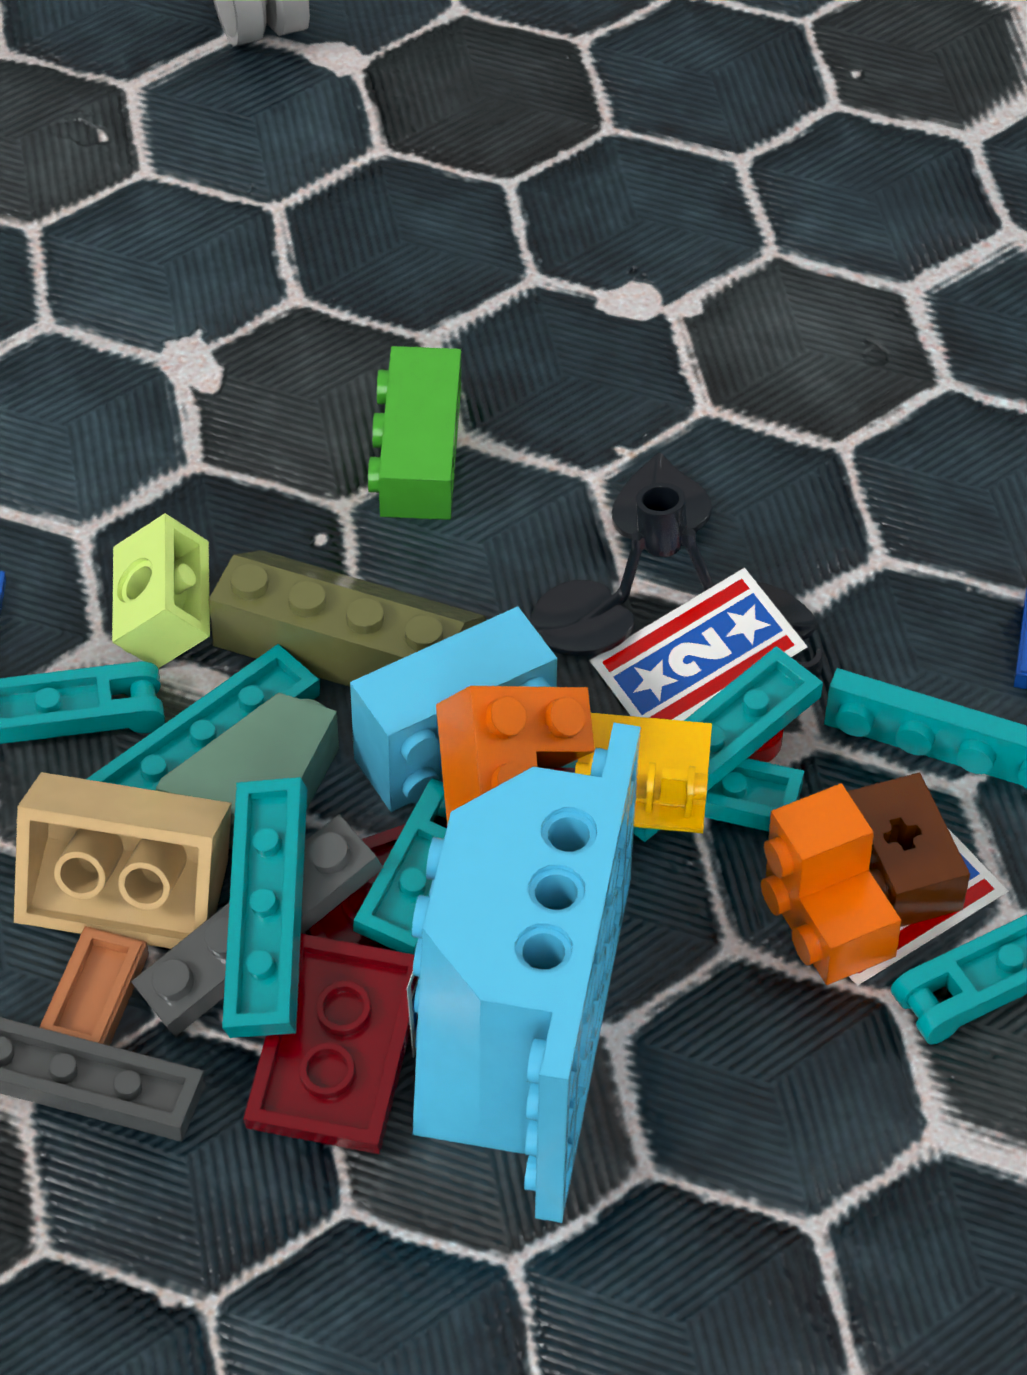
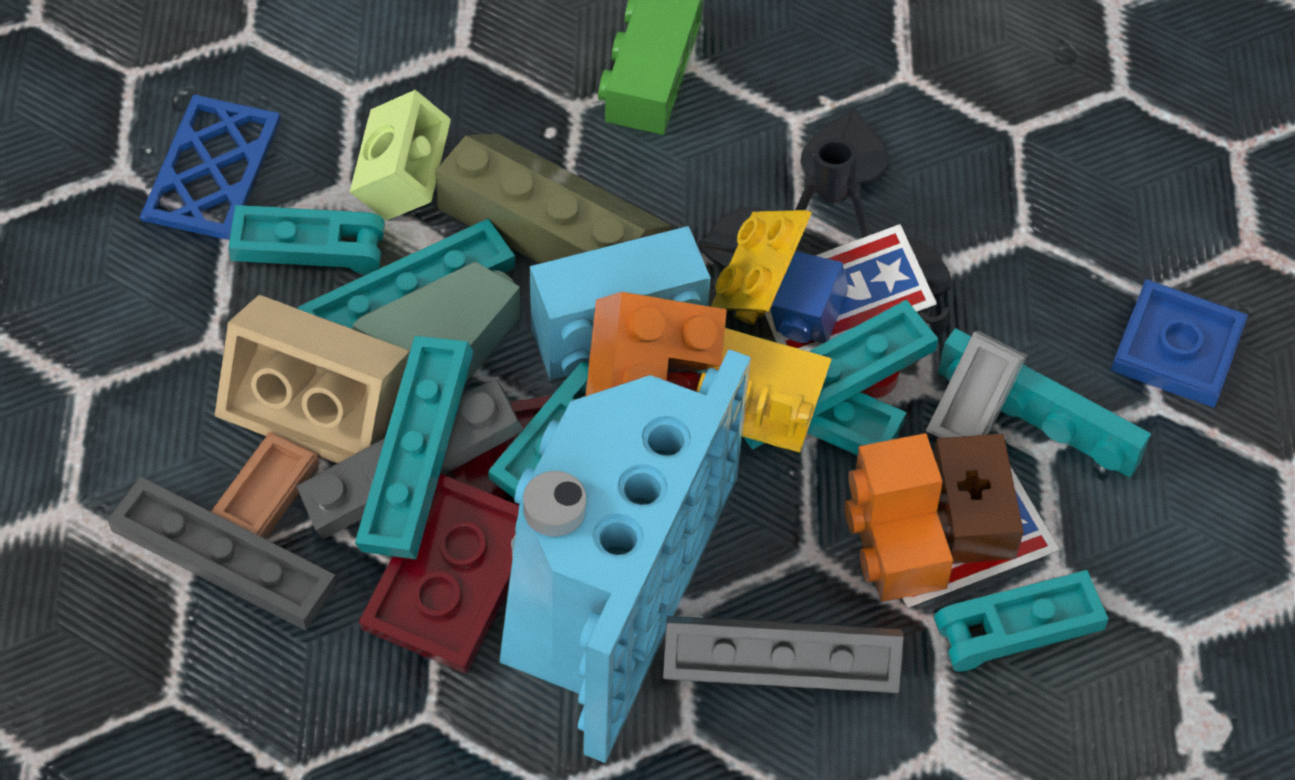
camera: 10 degrees right, 5 degrees up
(464, 924) = (554, 503): none -> light grey tile
(604, 633) = (759, 262): none -> yellow hinge
(664, 665) = (809, 298): none -> blue brick
(734, 1061) = (783, 654): none -> plate
(878, 728) = (977, 388): none -> light grey tile

